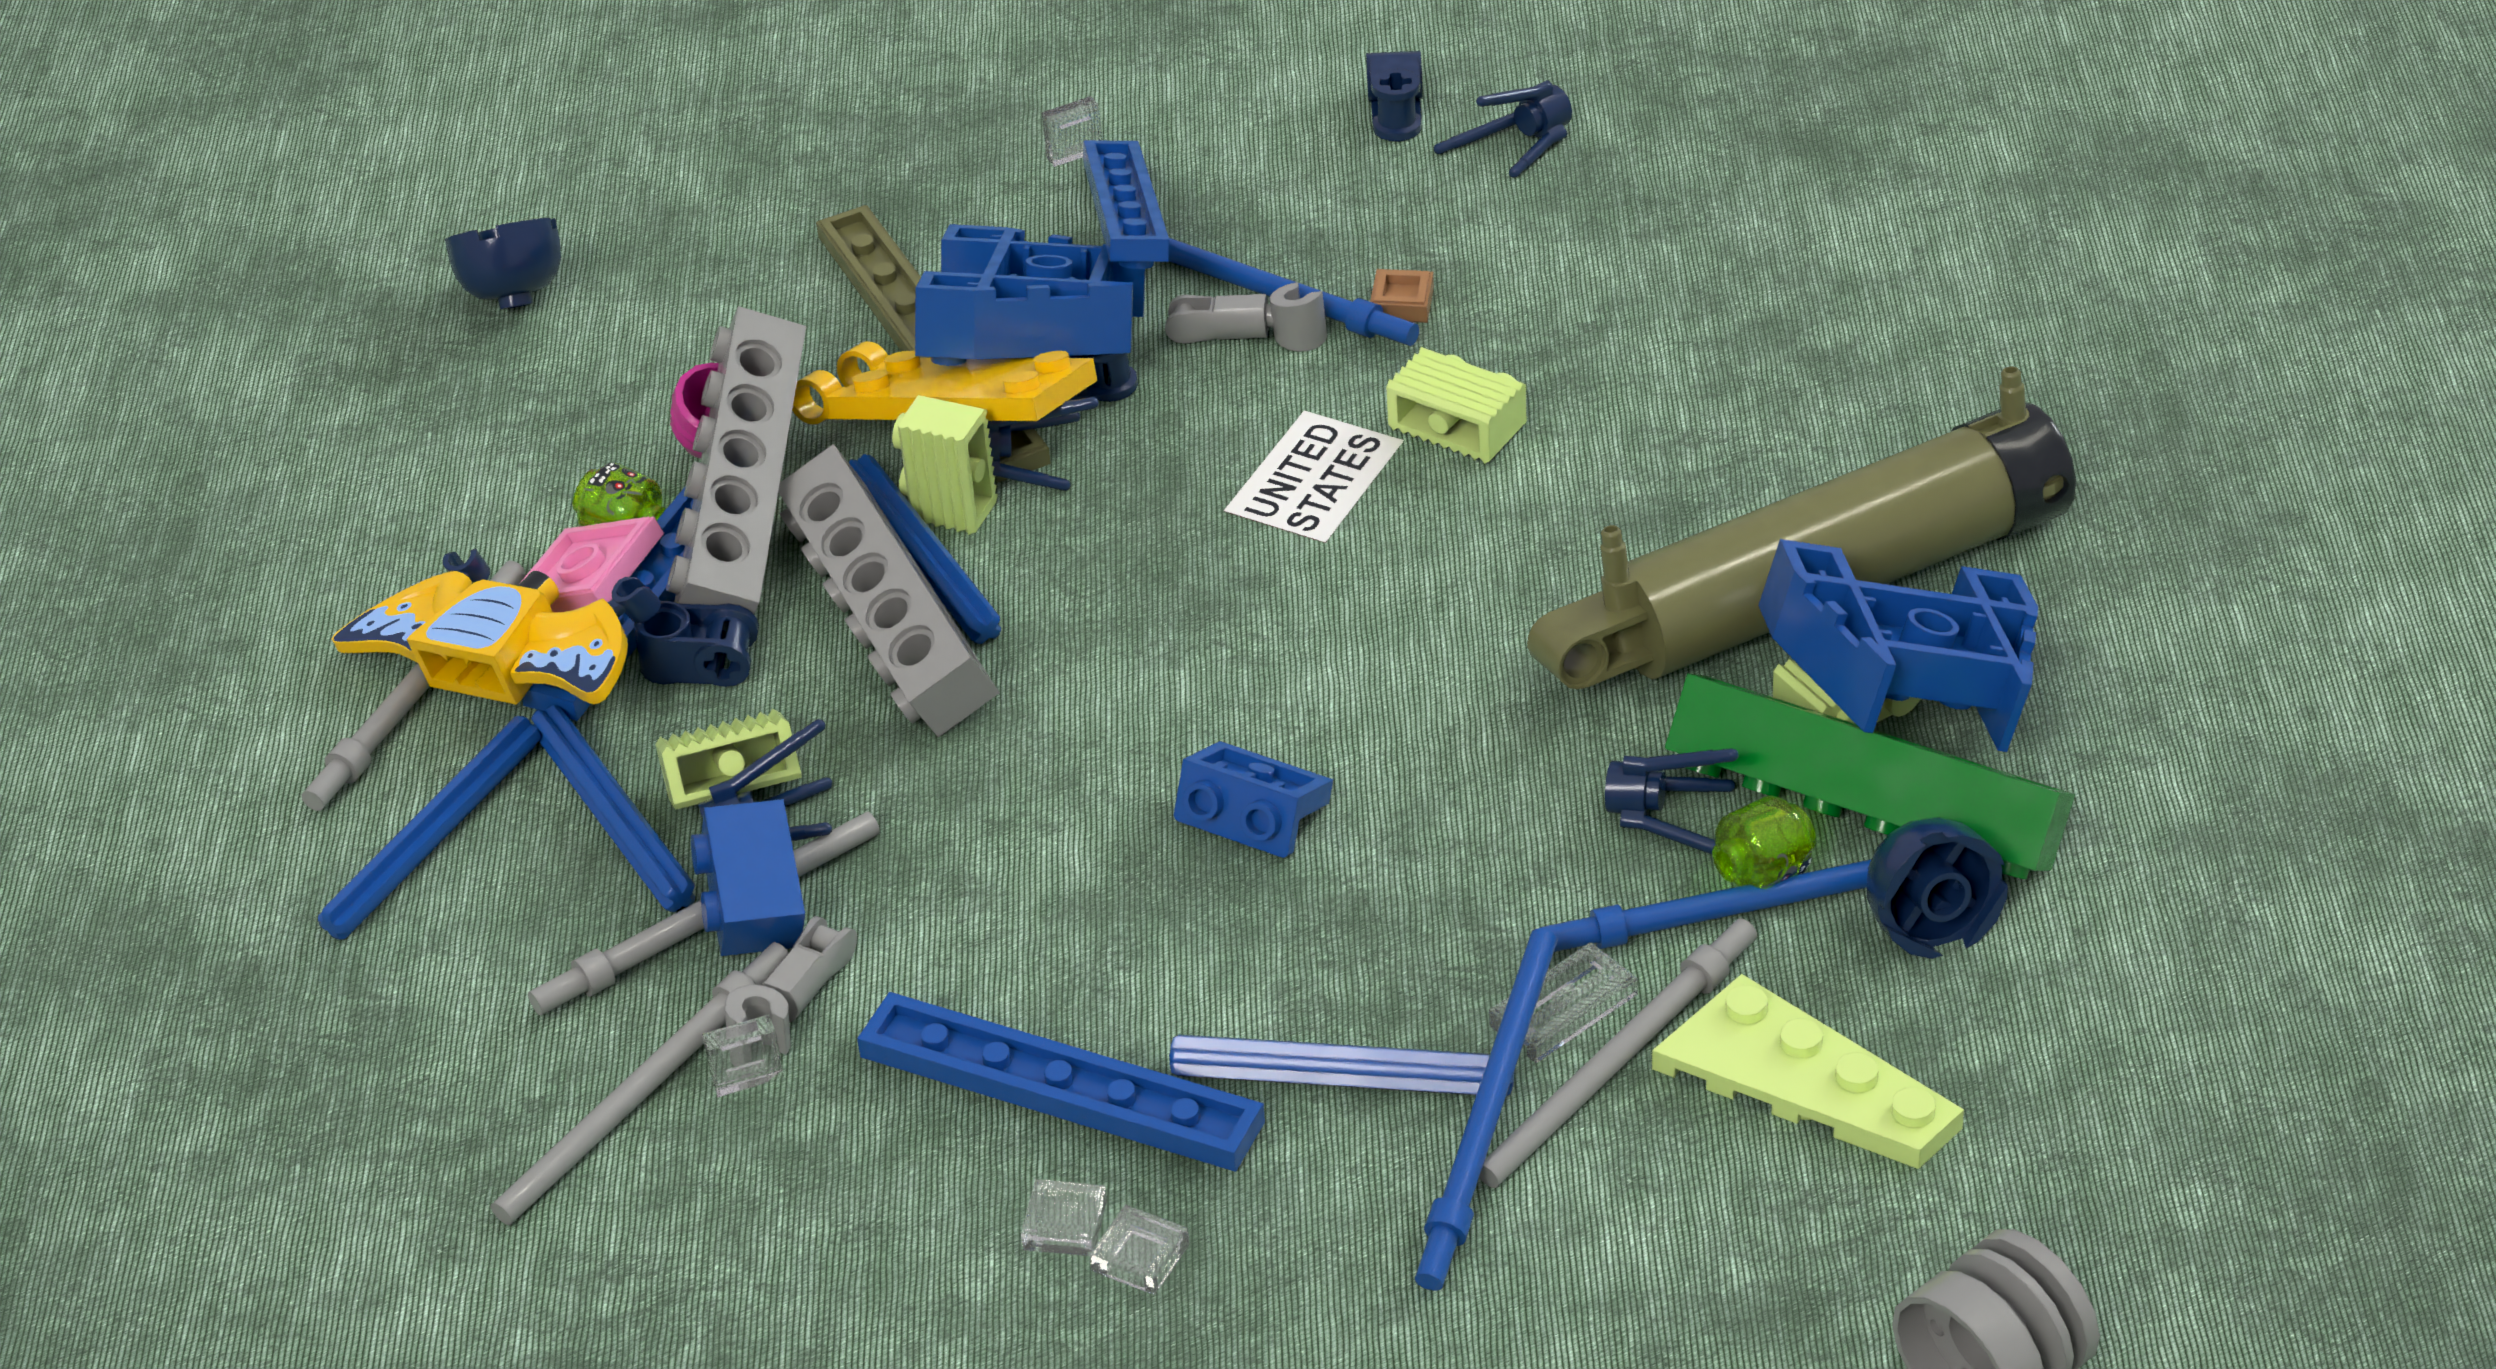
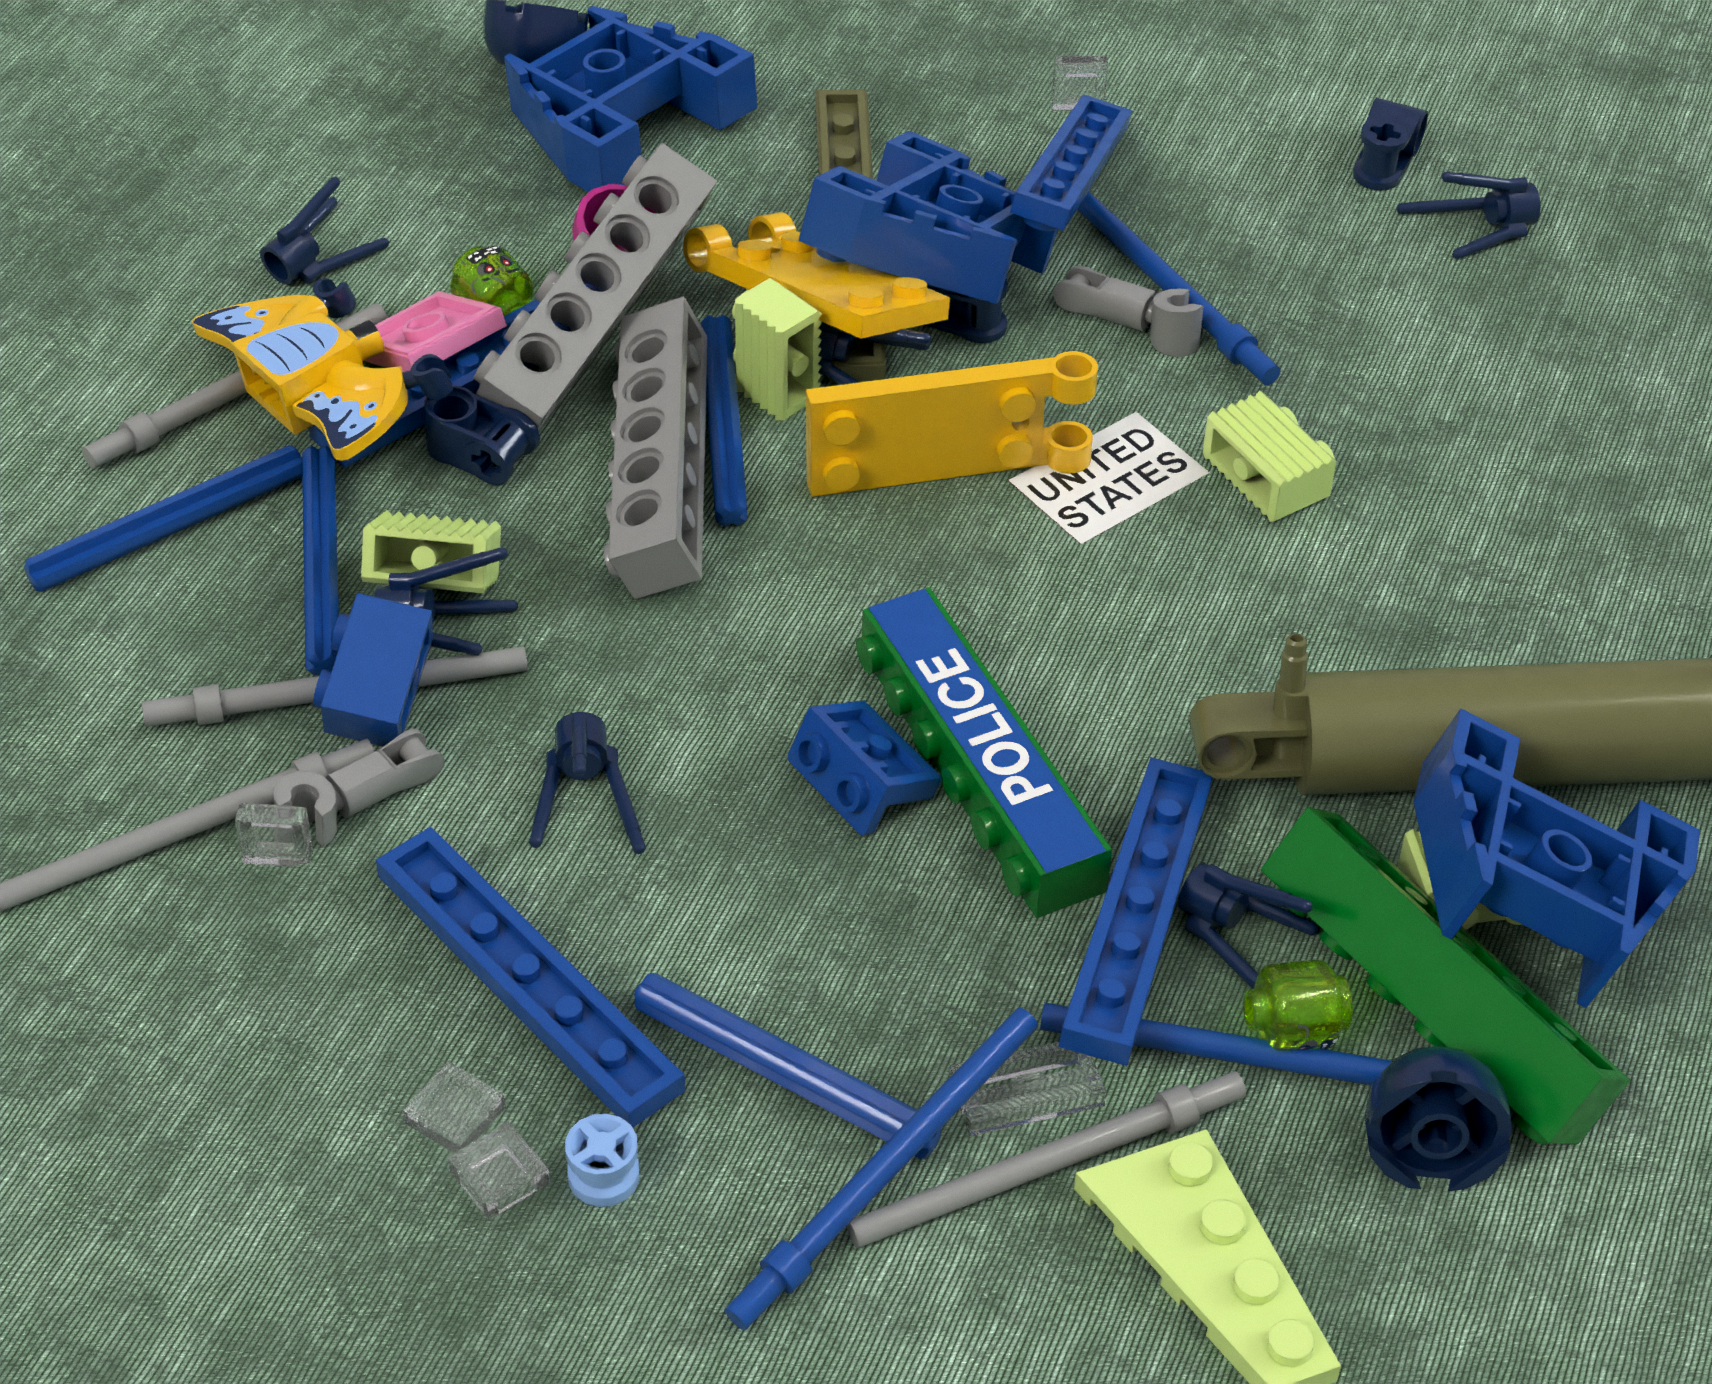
camera: 20 degrees right, 5 degrees up
(393, 539) = (295, 249): none -> dark blue plant
(608, 279) = (594, 88): none -> blue wedge
(987, 881) = (581, 754): none -> dark blue plant
(1152, 475) = (947, 424): none -> yellow hinge
(1231, 1202) = (610, 1143): none -> light blue wheel
(1359, 740) = (984, 753): none -> brick
(1404, 293) = (1287, 334): medium nougat tile -> none
(1580, 820) = (1136, 913): none -> blue plate

